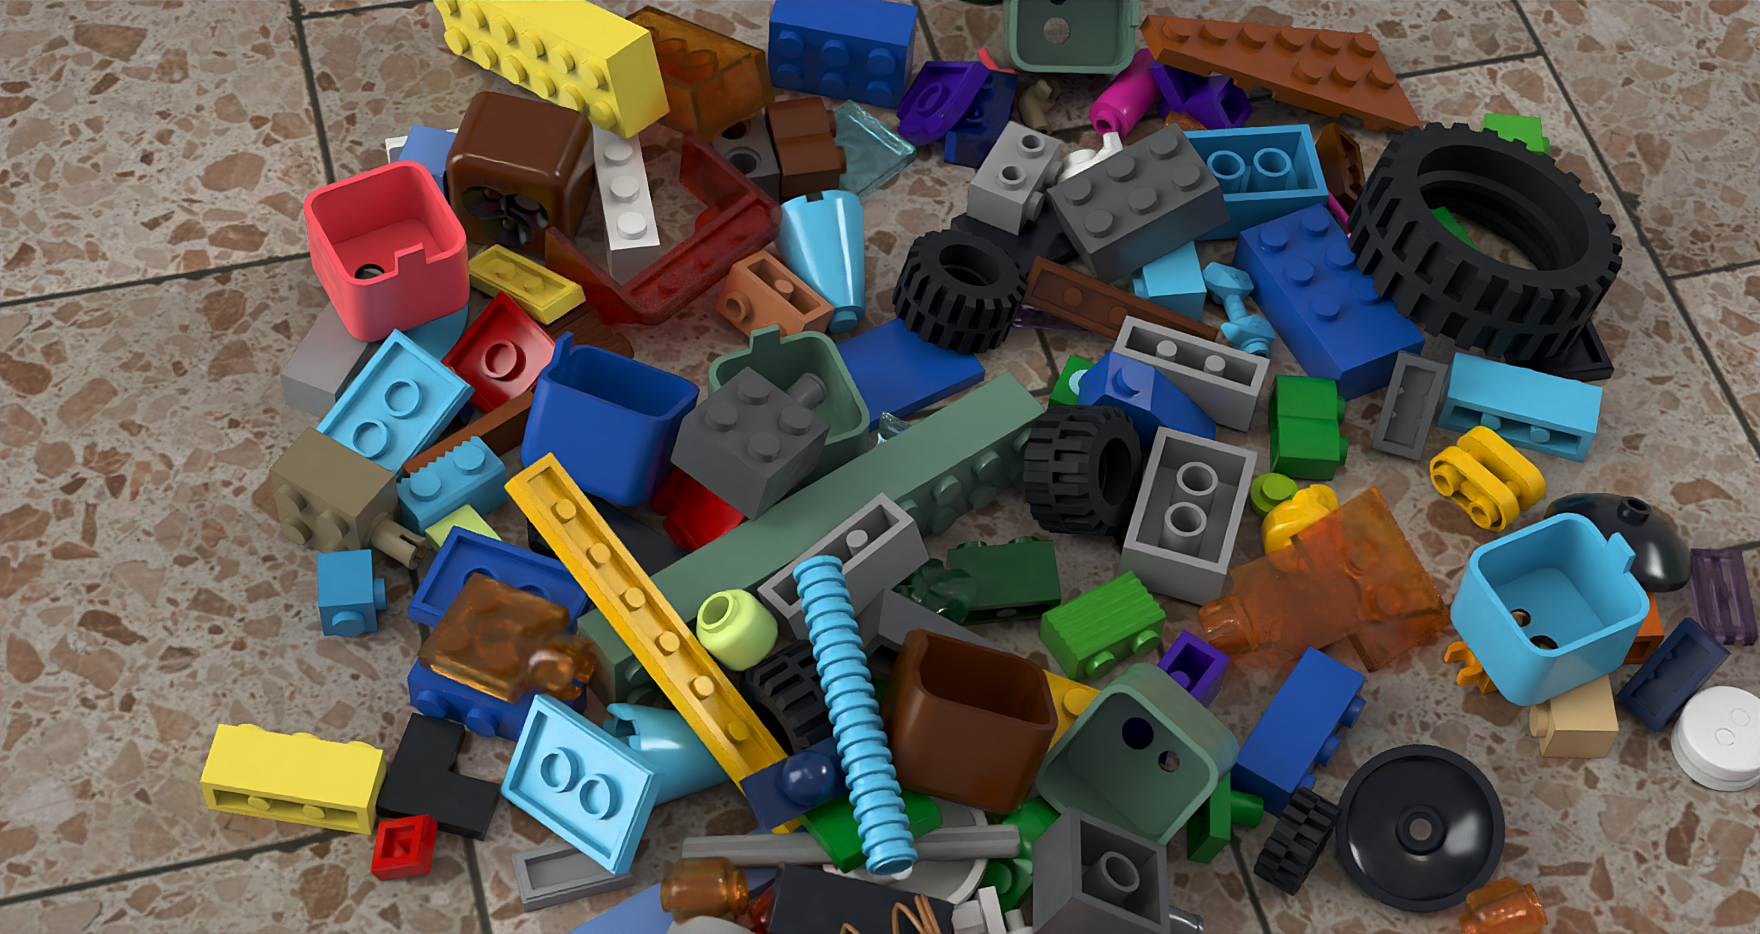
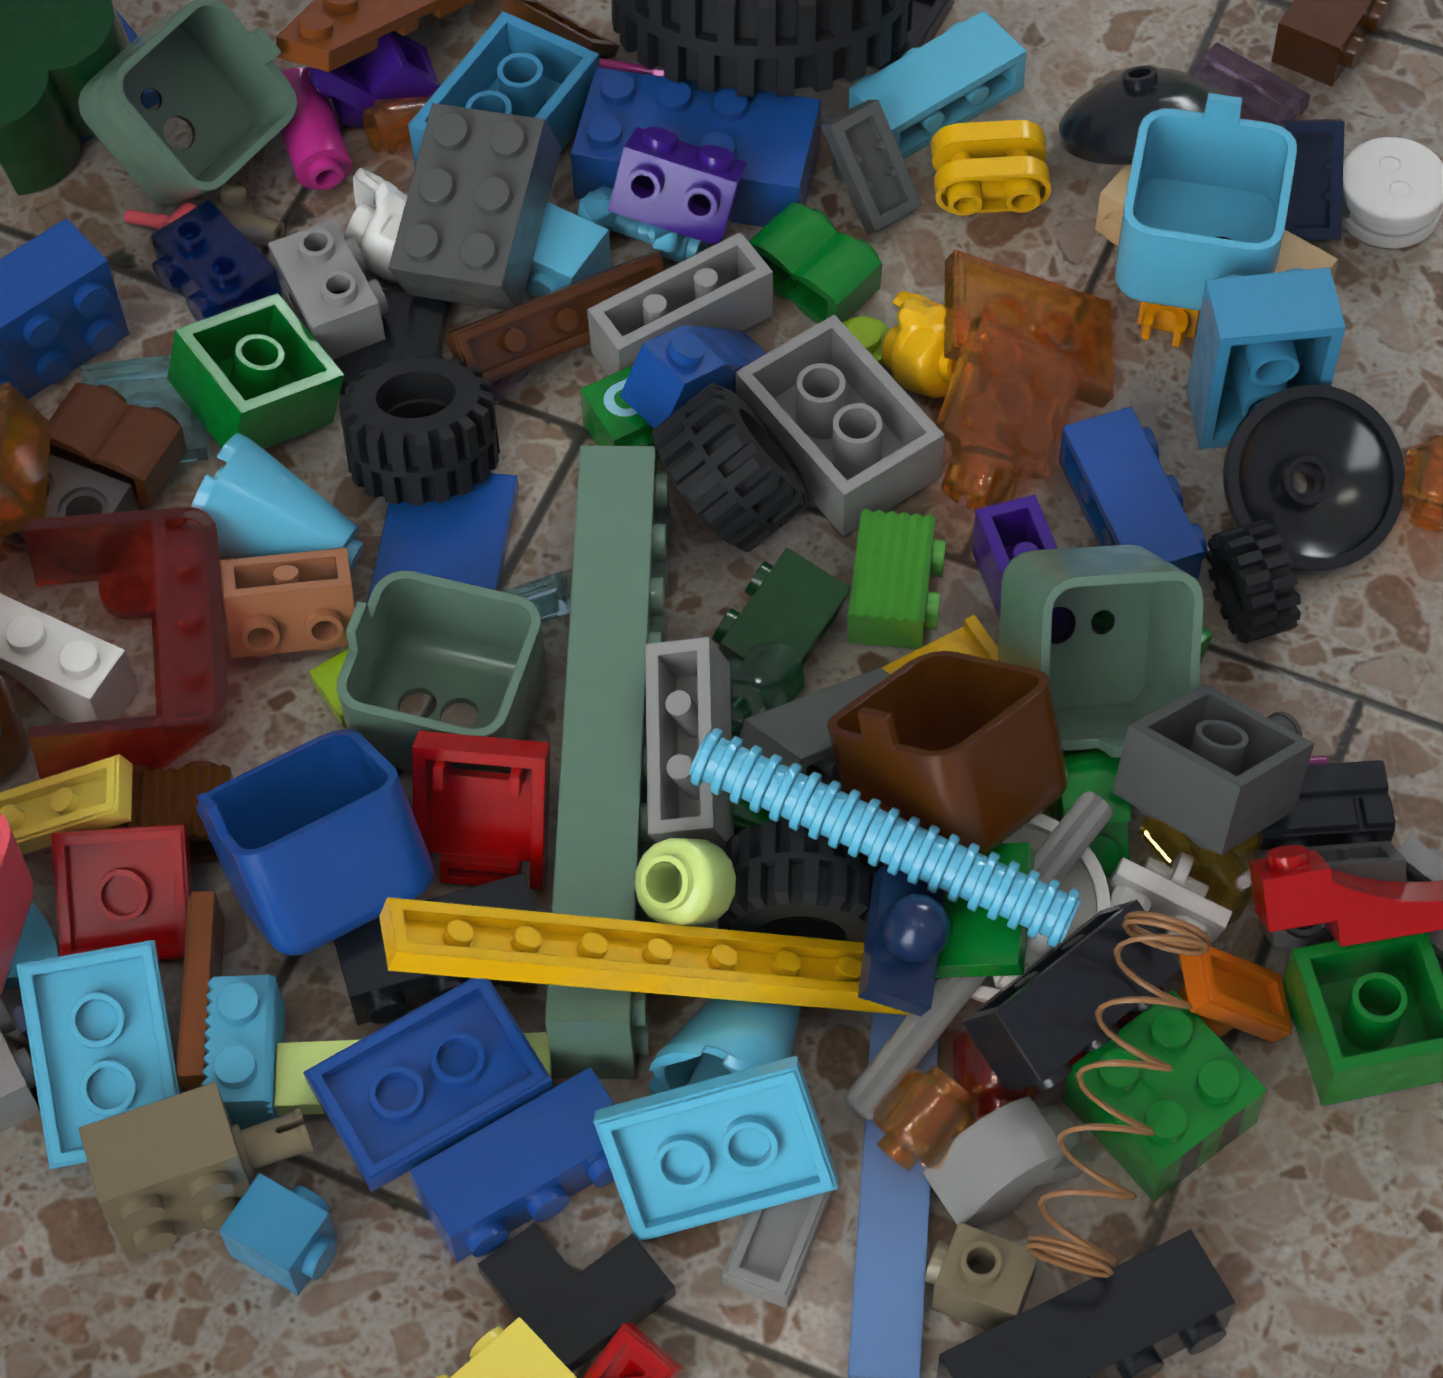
camera: 45 degrees left, 5 degrees up
(508, 643) = (504, 1109): clear orange plate -> none
(753, 440) = (492, 713): dark grey brick -> none
(916, 179) = (255, 374): none -> green brick
(938, 99) = (168, 282): dark purple tile -> none
(1271, 303) = (677, 184): none -> dark purple brick
(1481, 711) = (1257, 341): none -> dark azure brick

